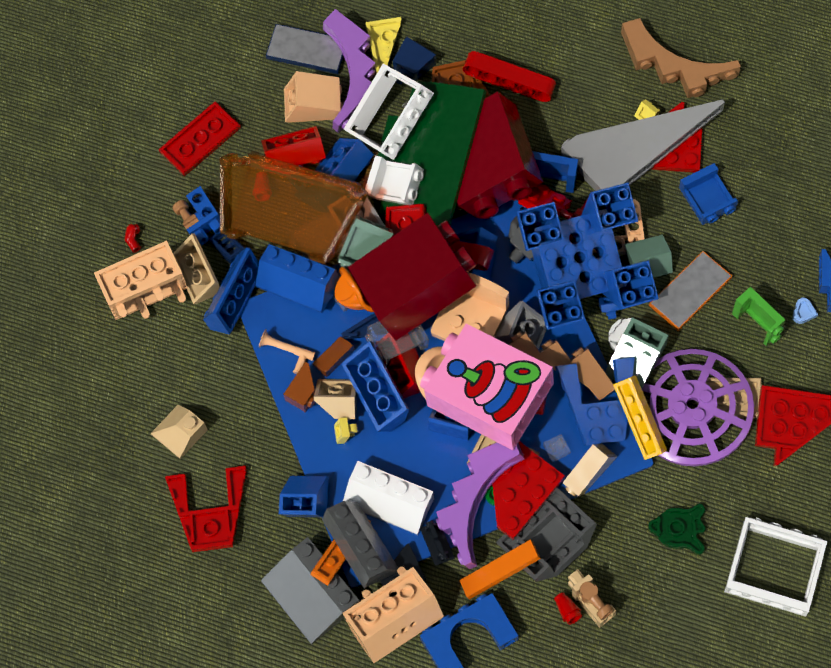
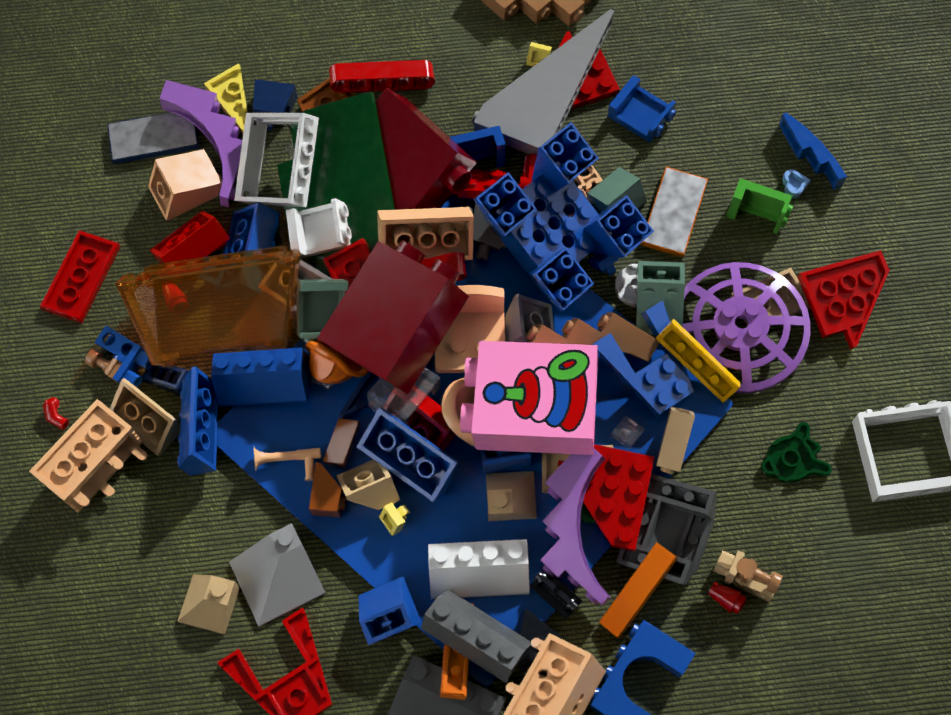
camera: 30 degrees left, 0 degrees up
(238, 433) = (276, 575): none -> light grey slope
(440, 455) = (511, 496): none -> tan slope
(475, 220) = (429, 230): none -> light nougat slope

